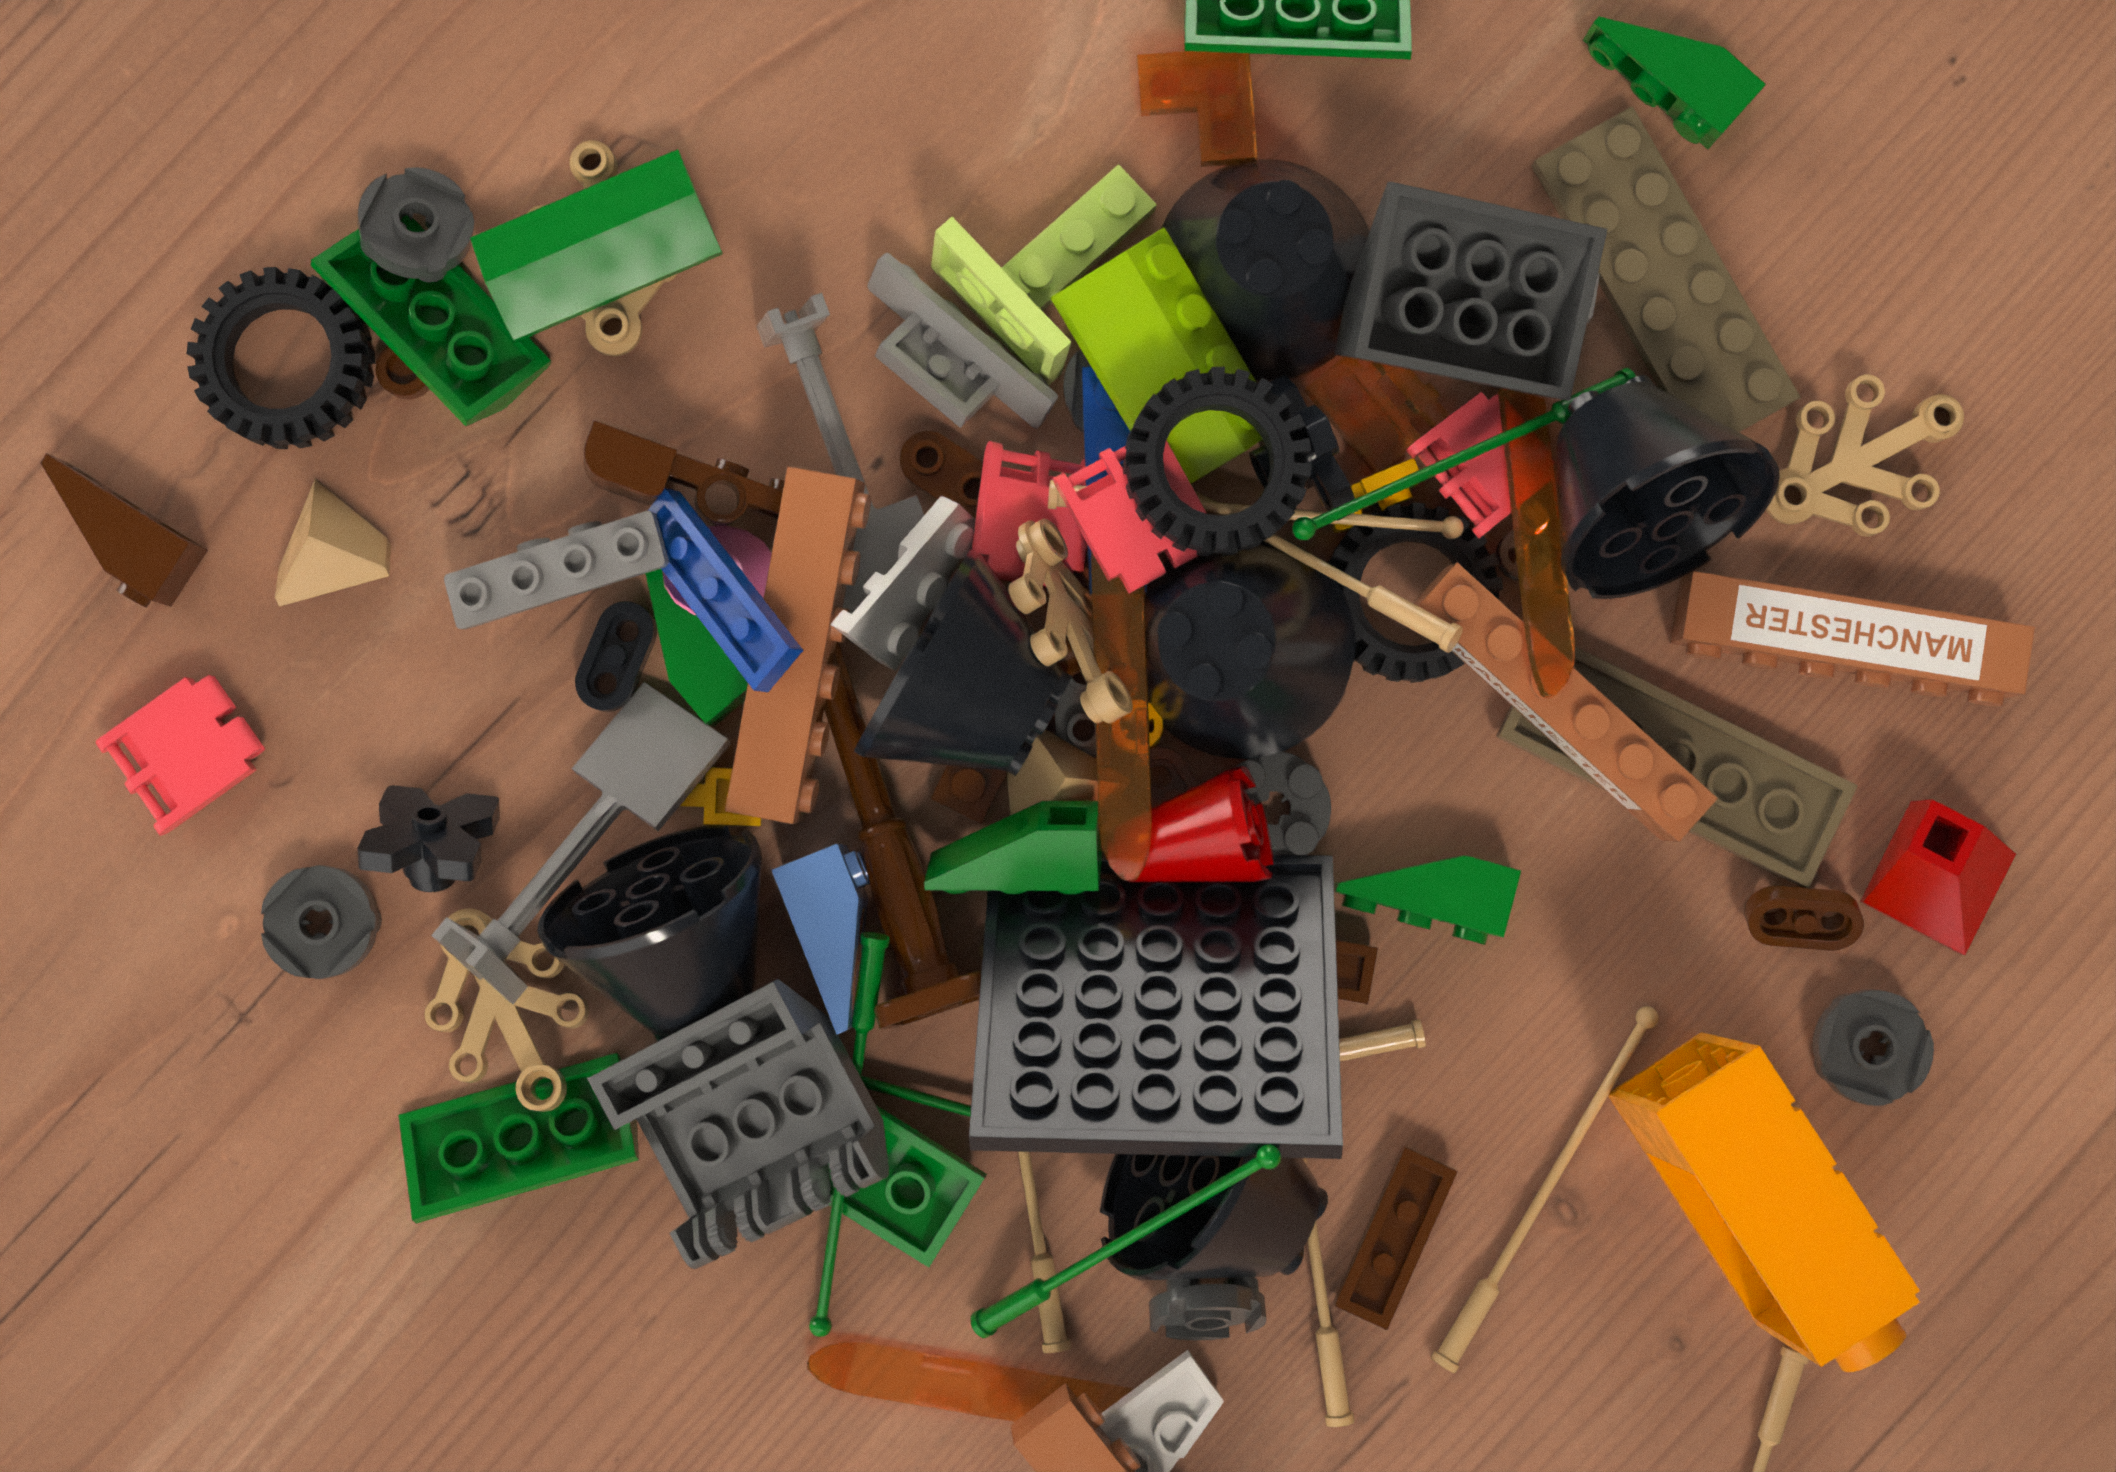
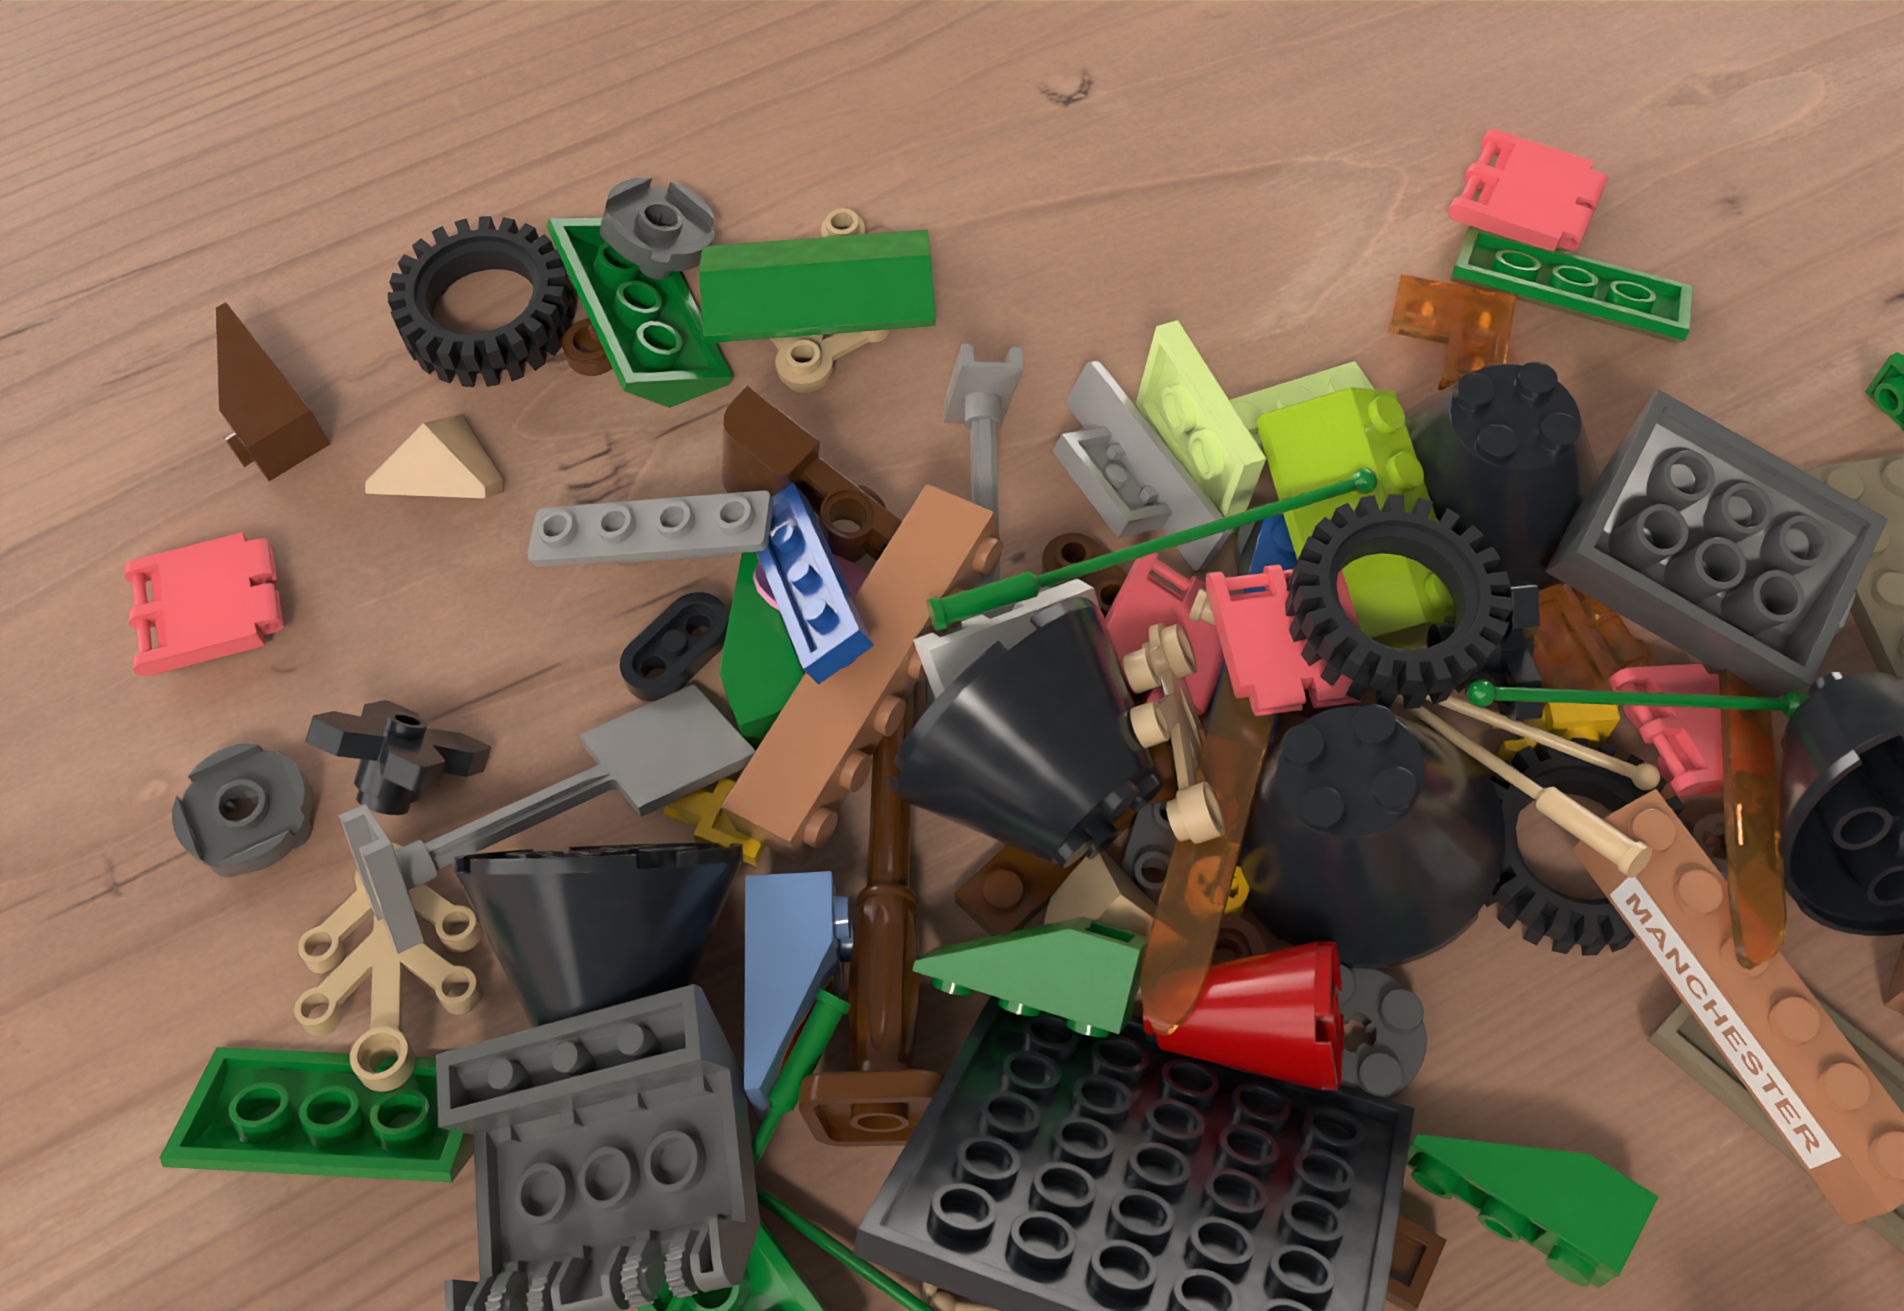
camera: 15 degrees right, 25 degrees down
(909, 541) = (1028, 585): none -> green piece

